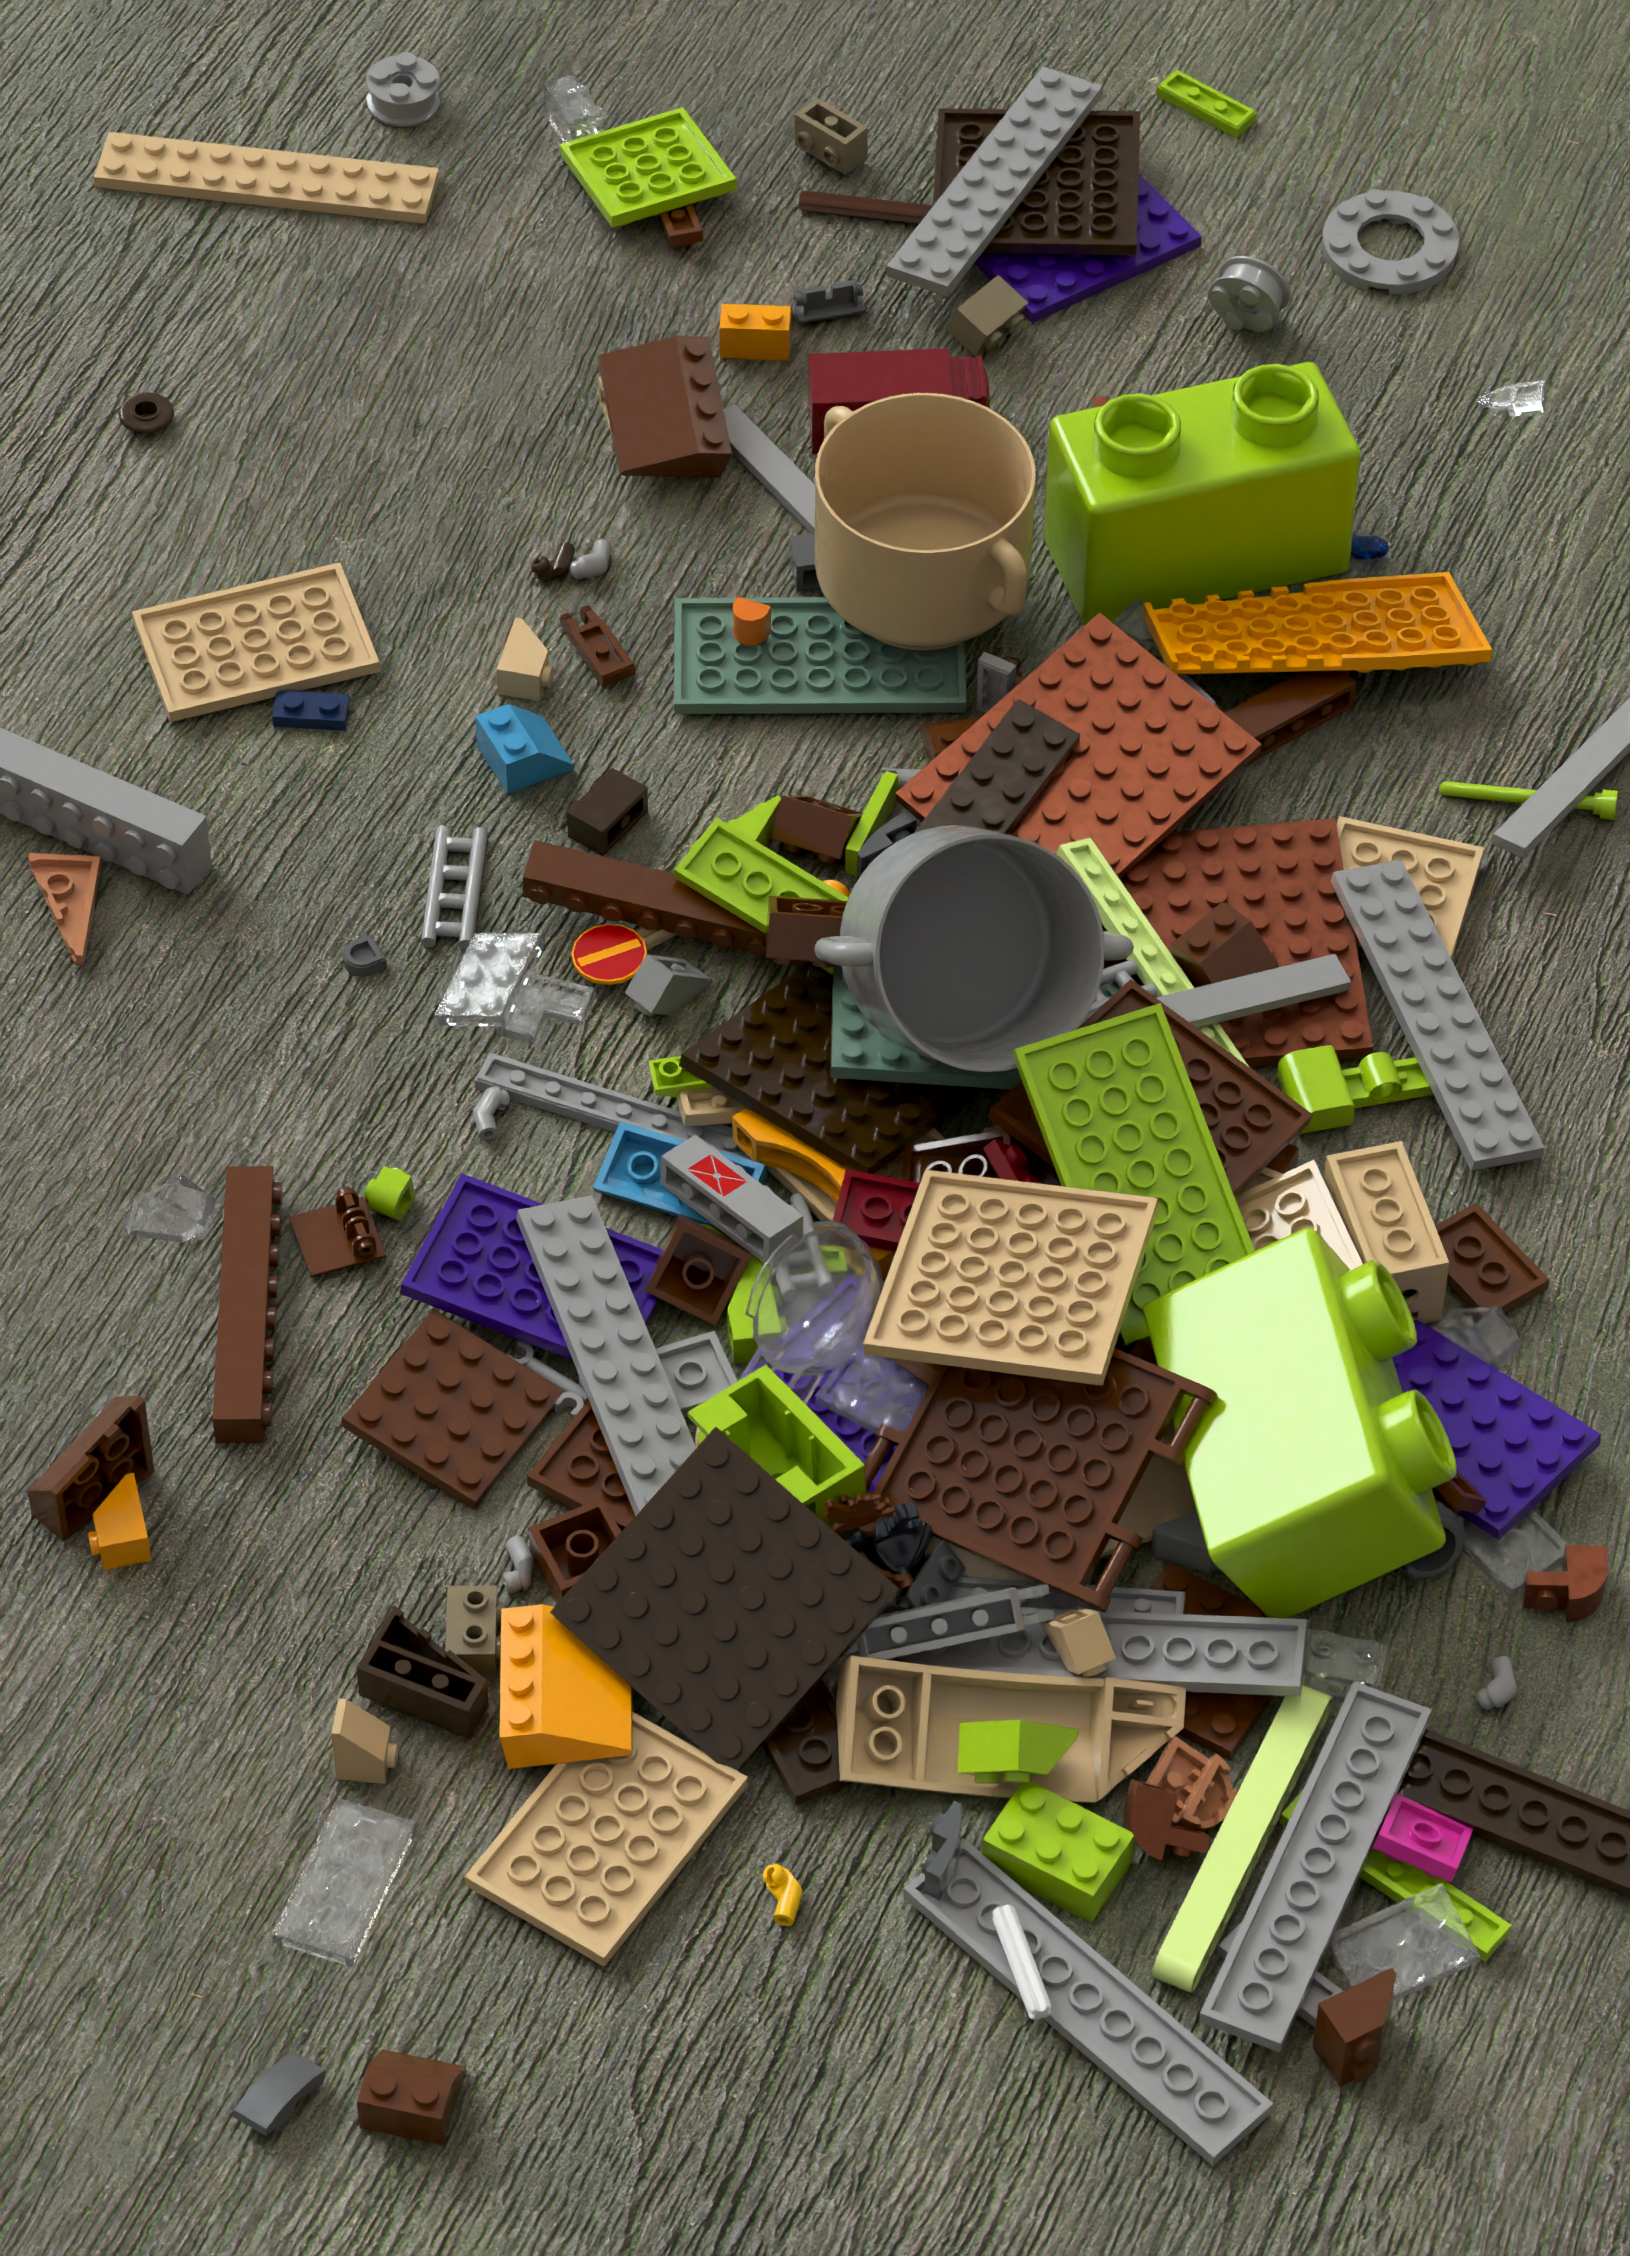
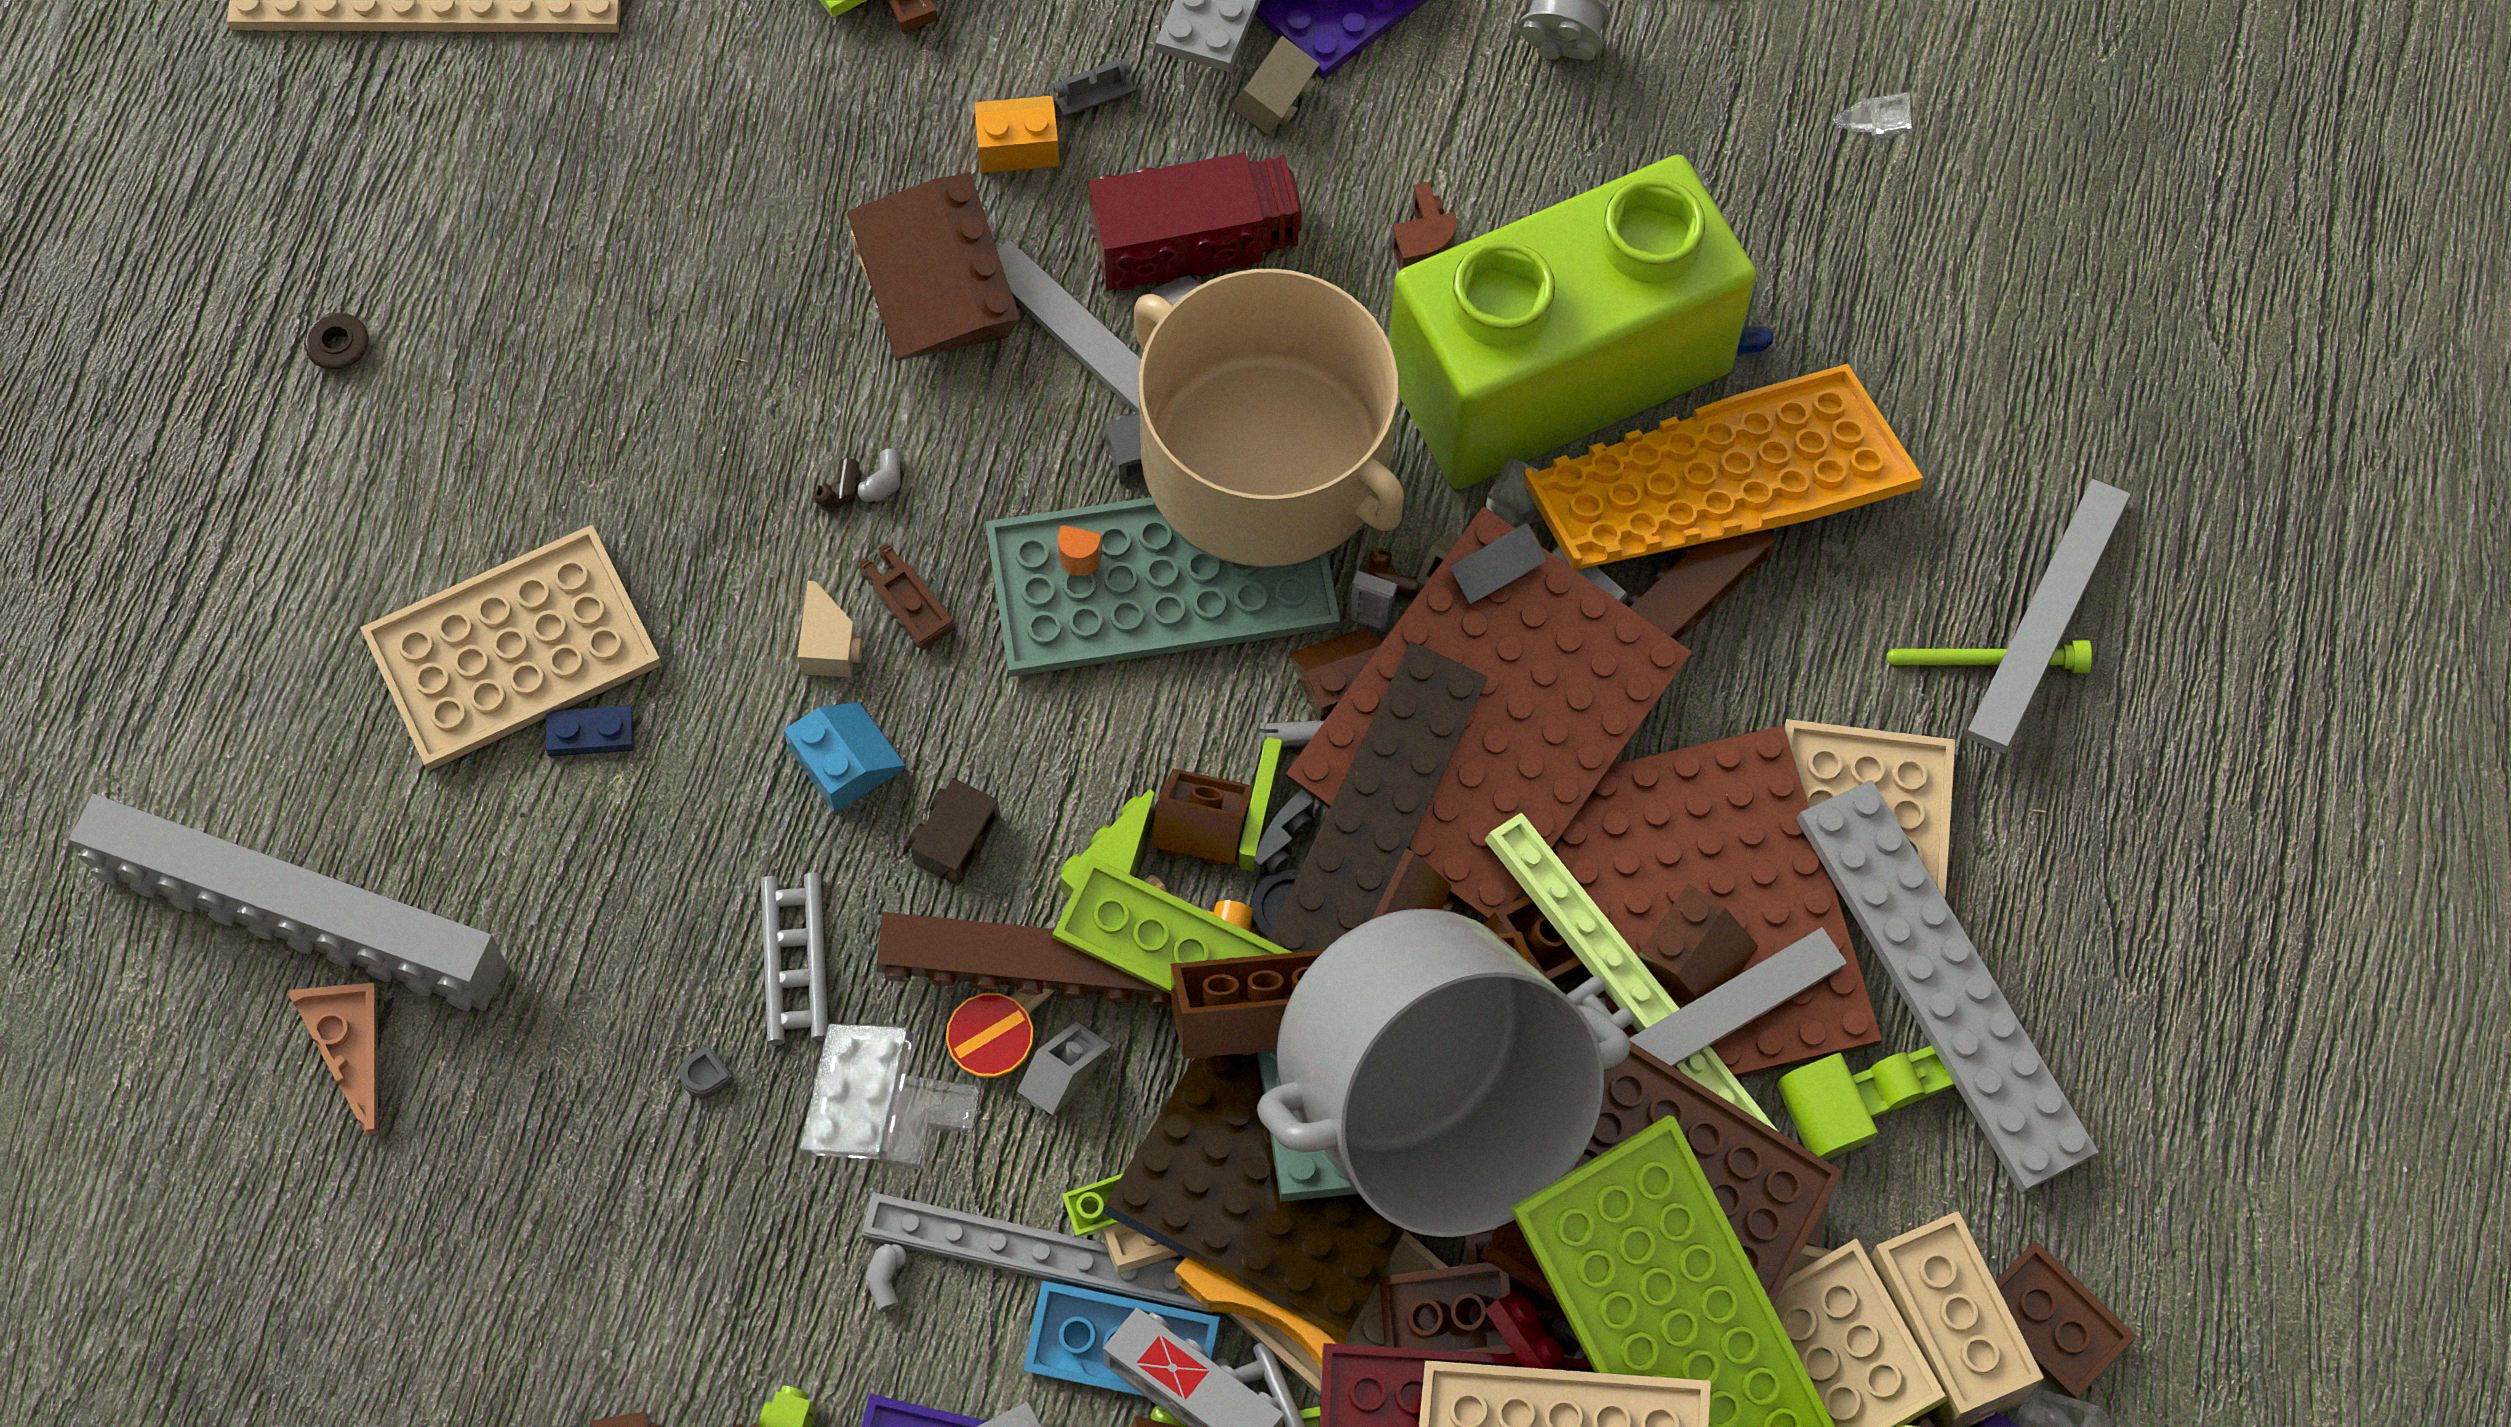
camera: 10 degrees left, 15 degrees up
(1103, 648) = (1498, 563): none -> dark grey slope

